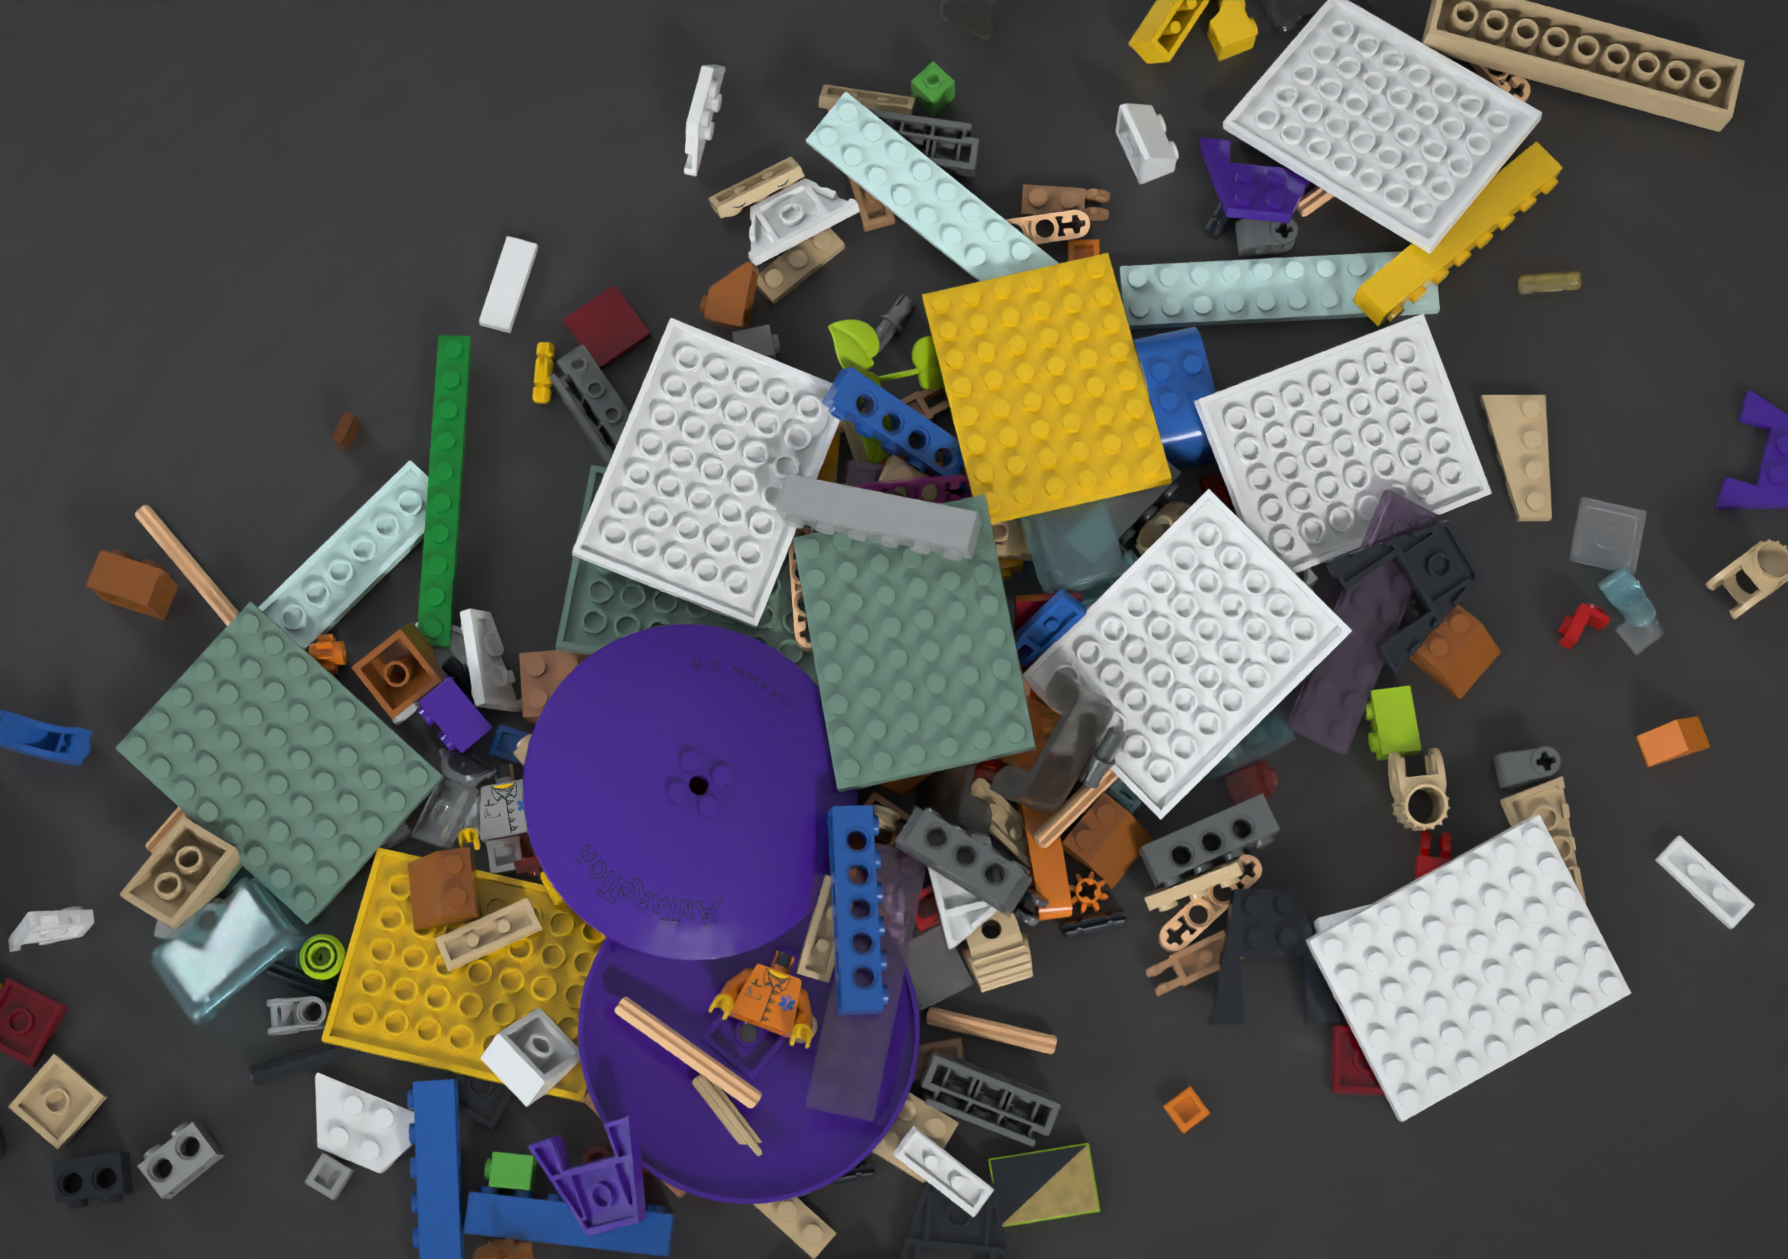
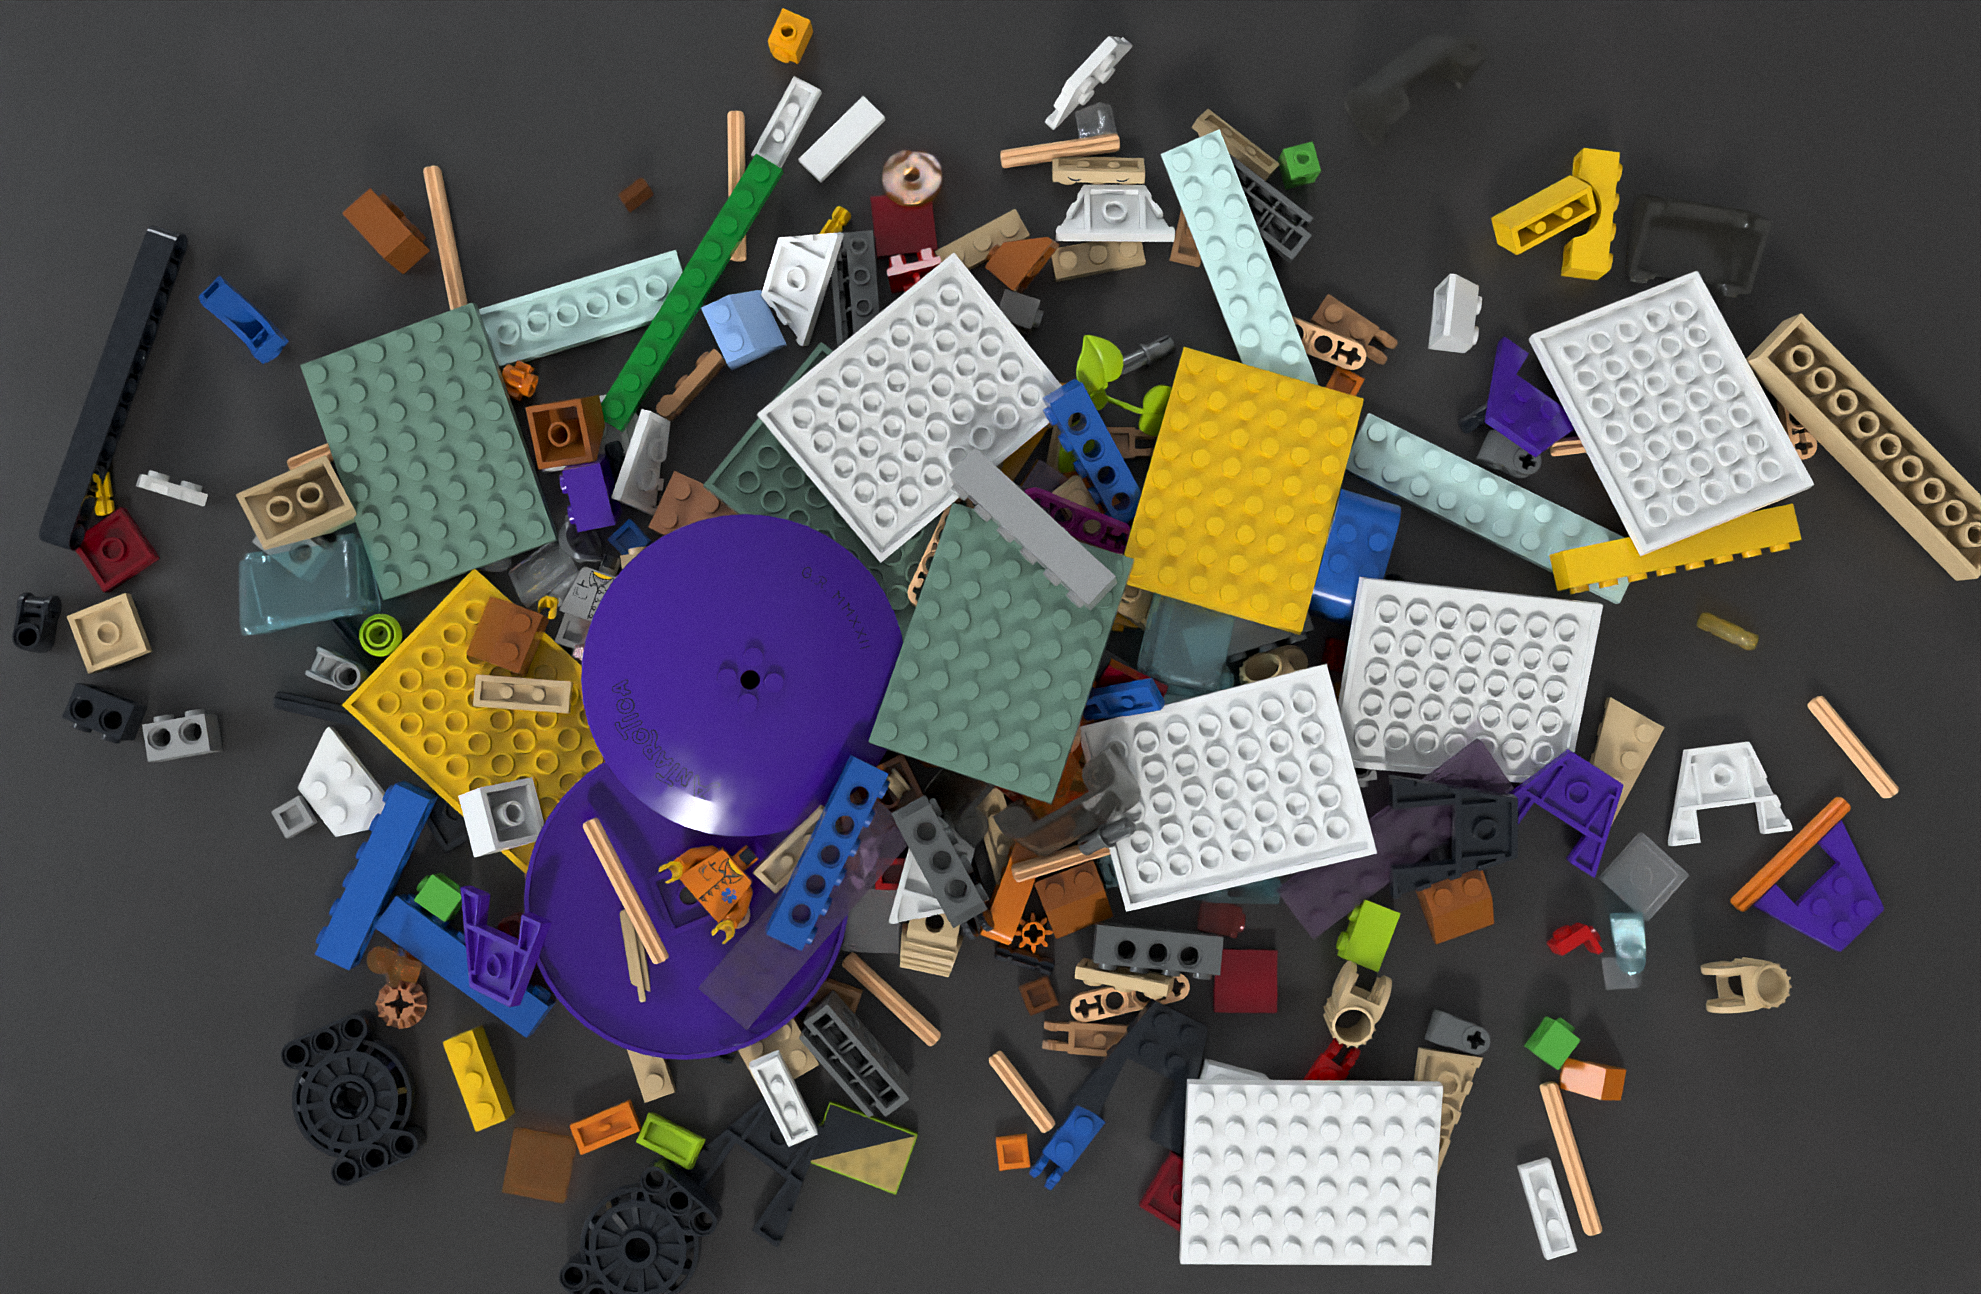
camera: 20 degrees right, 10 degrees up
(412, 220) = (790, 37): none -> light orange brick
(424, 357) = (736, 164): none -> light nougat axle
(449, 294) = (787, 121): none -> white tile
(491, 573) = (690, 386): none -> medium nougat hinge
(510, 496) = (743, 327): none -> light blue slope
(540, 423) = (800, 279): none -> white wing
(595, 297) = (917, 192): none -> clear orange tile
(633, 371) = (904, 275): none -> red hips
(687, 302) = (976, 245): none -> tan plate
(720, 182) = (1071, 148): none -> light nougat axle
(729, 149) = (1095, 120): none -> clear slope
(1125, 950) = (1038, 995): none -> reddish brown tile
(1162, 1047) = (1022, 1091): none -> light nougat axle
(1233, 1071) = (1068, 1144): none -> blue hinge
(1309, 829) = (1246, 981): none -> dark red tile
(1506, 494) = (1580, 797): none -> dark purple wing
(1616, 726) = (1553, 1041): none -> bright green brick
(1622, 411) = (1722, 778): none -> white wing
(1698, 824) = (1571, 1158): none -> light nougat axle
(1720, 321) = (1853, 747): none -> light nougat axle
(1724, 444) = (1790, 854): none -> orange axle

